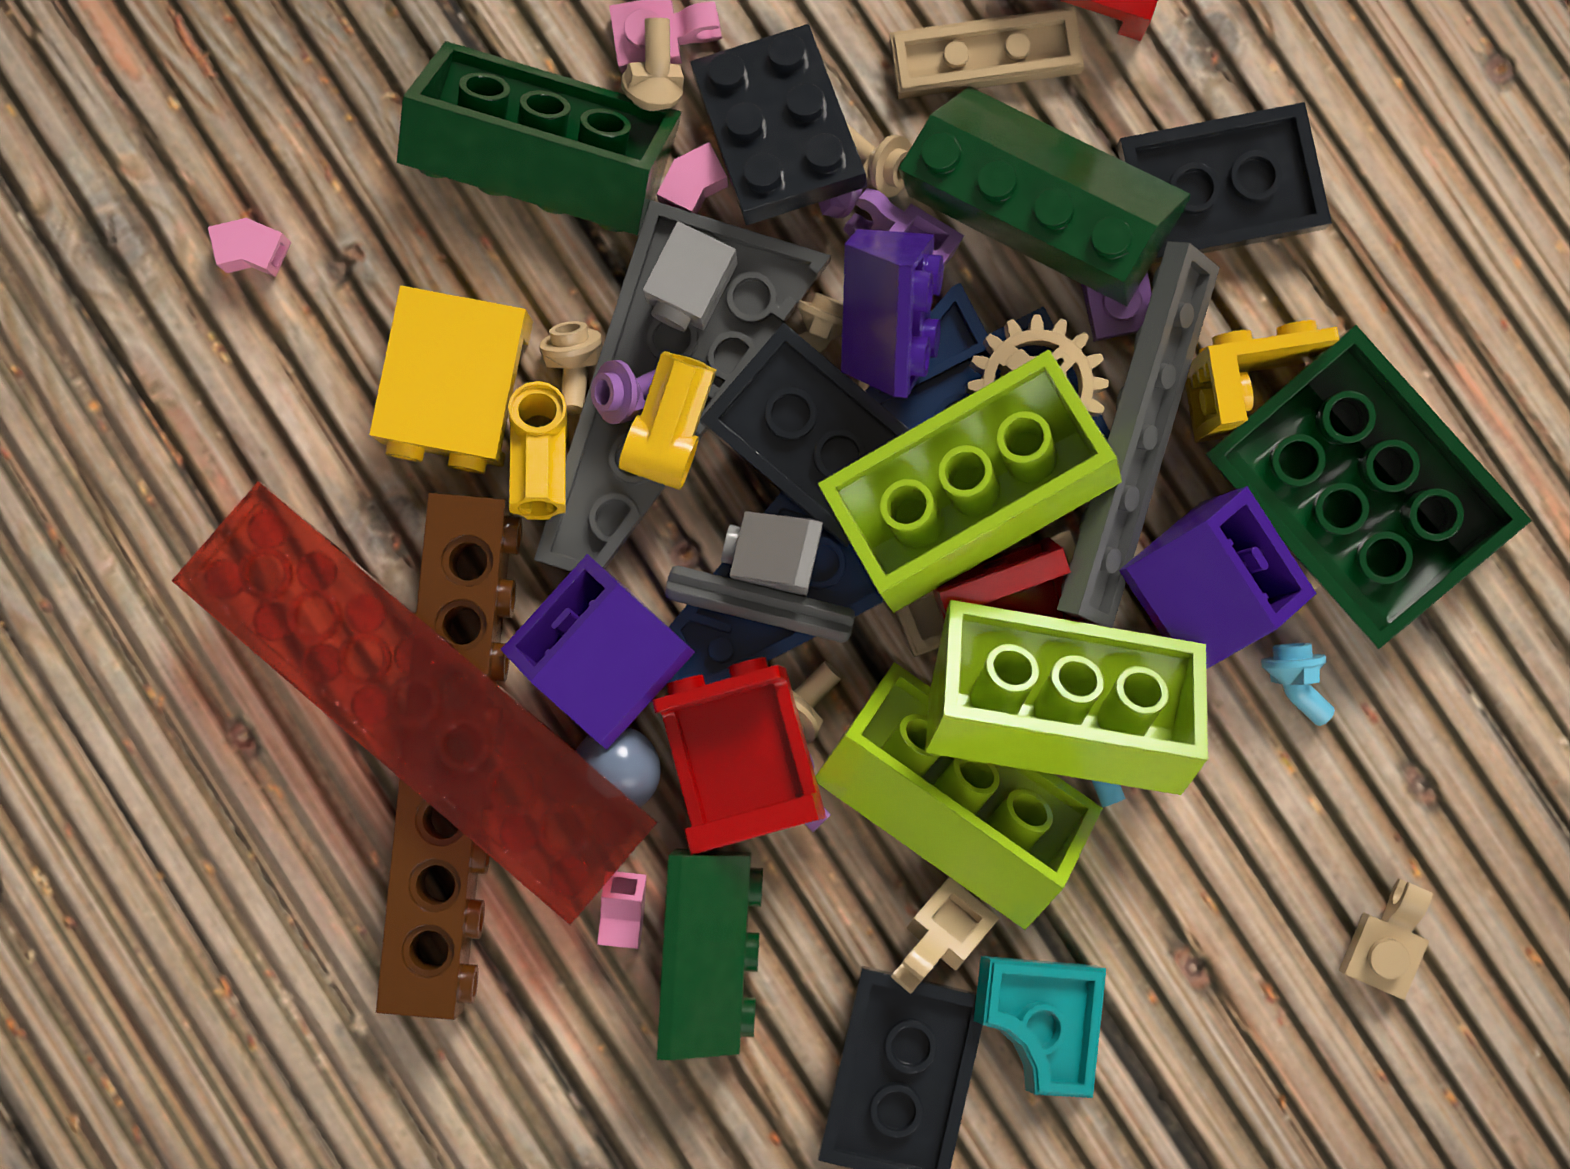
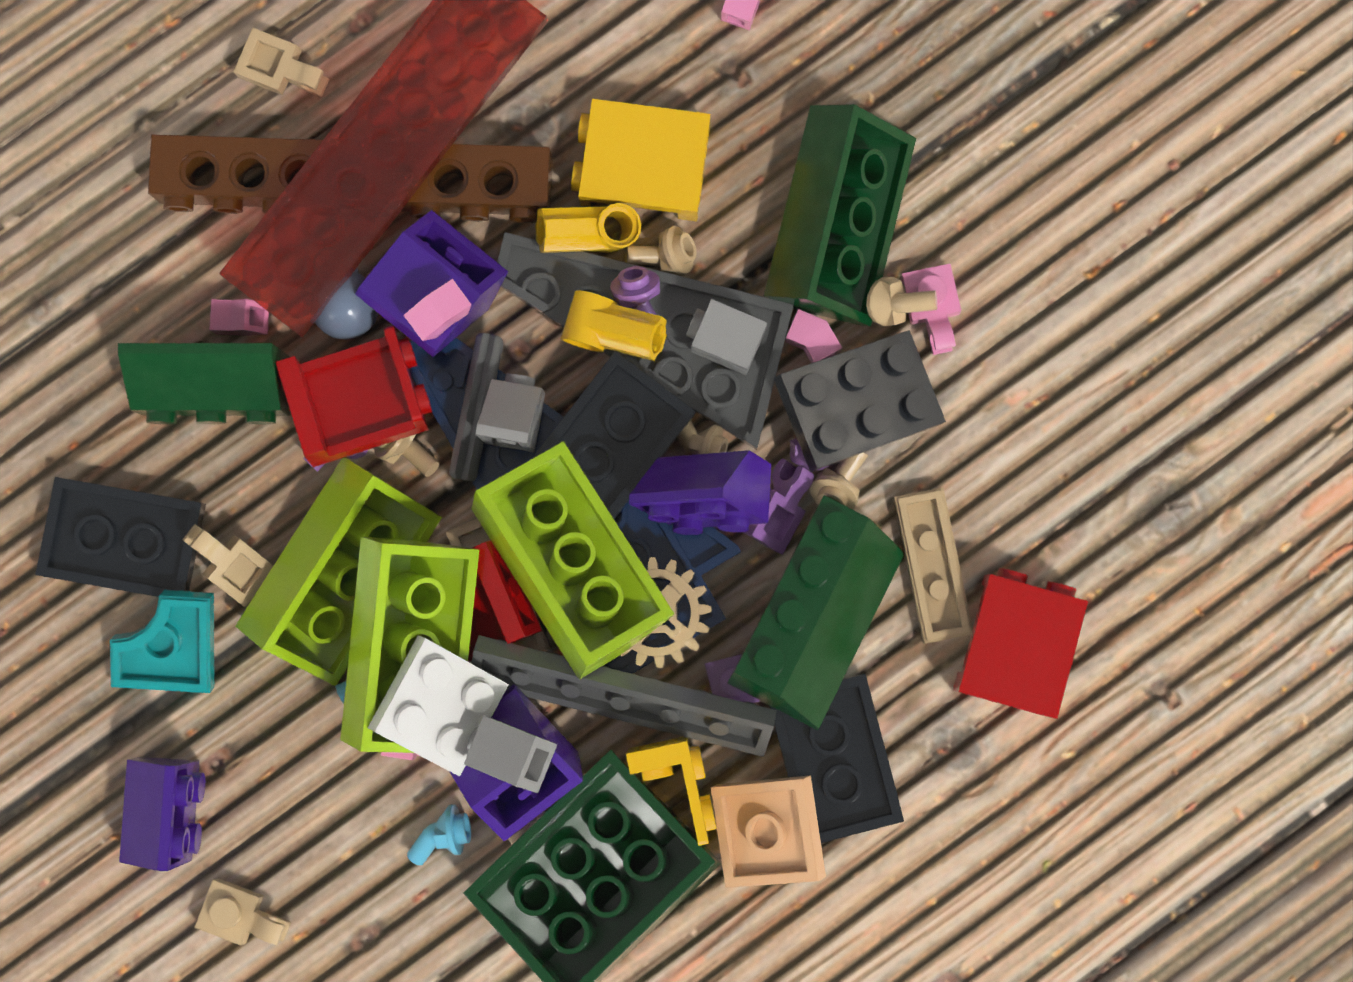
camera: 90 degrees right, 0 degrees up
(291, 852) = (274, 63): none -> tan plate
(639, 634) = (438, 311): none -> bright pink piece
(1149, 661) = (437, 704): none -> white plate
(1216, 571) = (509, 754): none -> light grey brick
(1260, 1038) = (161, 812): none -> dark purple slope
(1313, 264) = (768, 832): none -> light nougat plate

